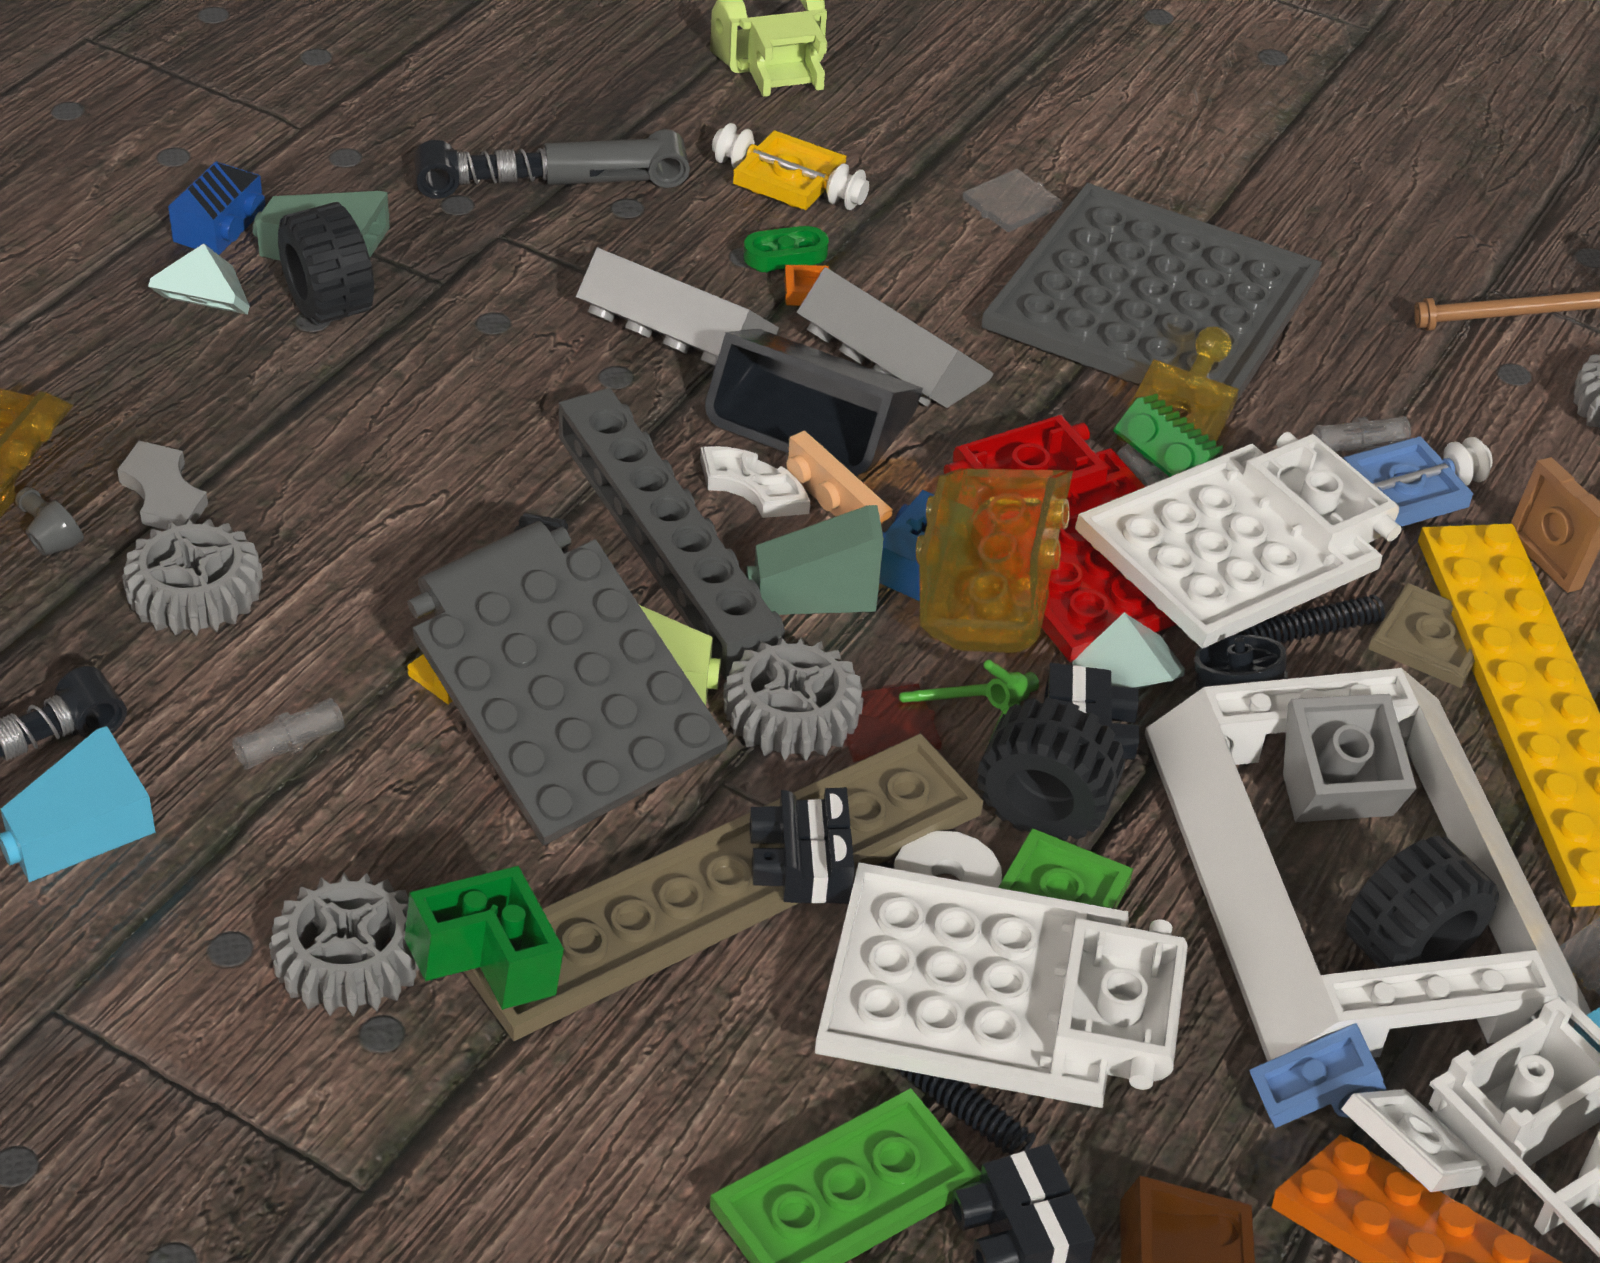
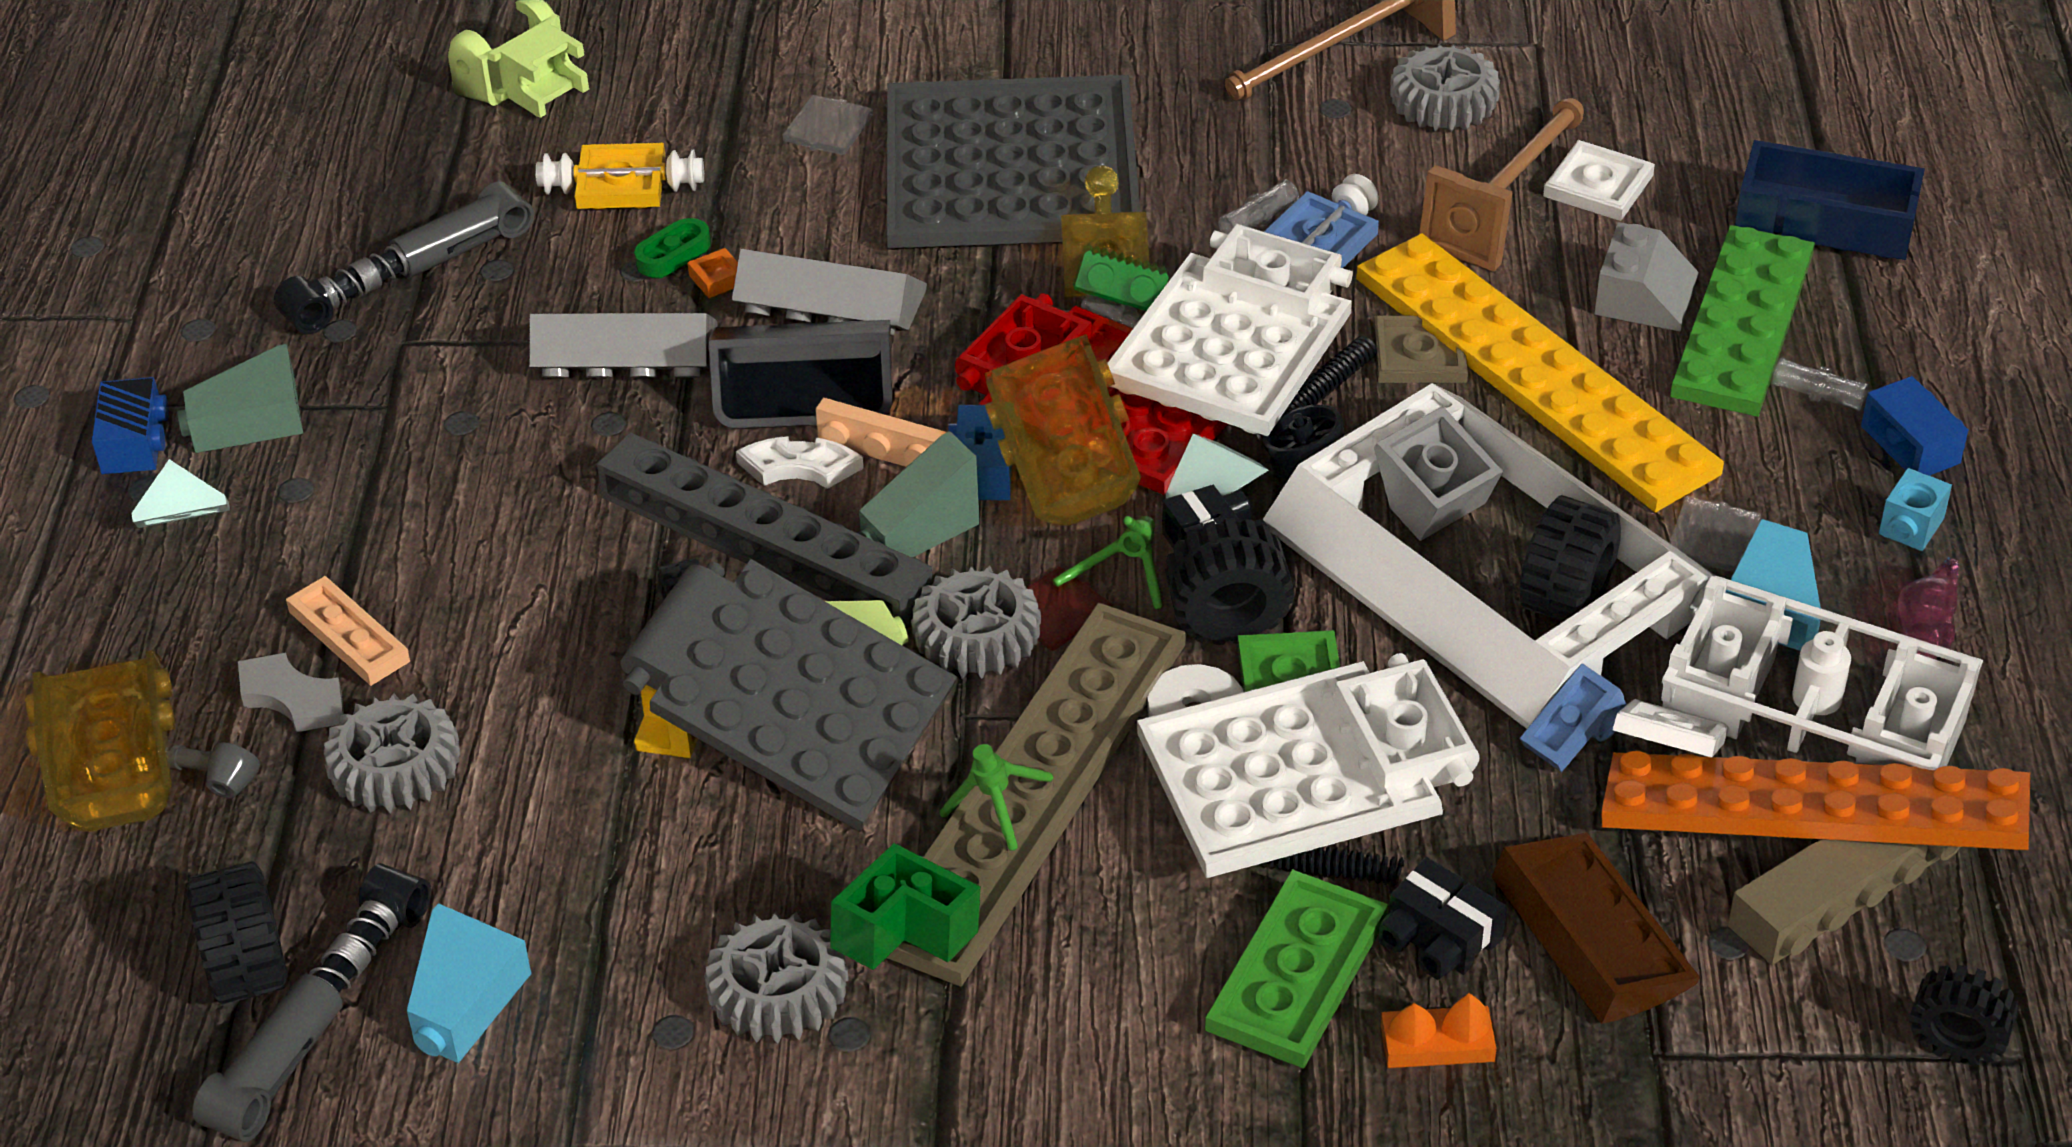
camera: 25 degrees left, 0 degrees up
(247, 456) = (348, 630): none -> light nougat plate
(288, 733) = (582, 841): clear pin -> none
(326, 263) = (291, 430): black tyre -> none
(666, 850) = (991, 776): none -> bright green plant
(814, 848) = (1092, 726): black hips -> none

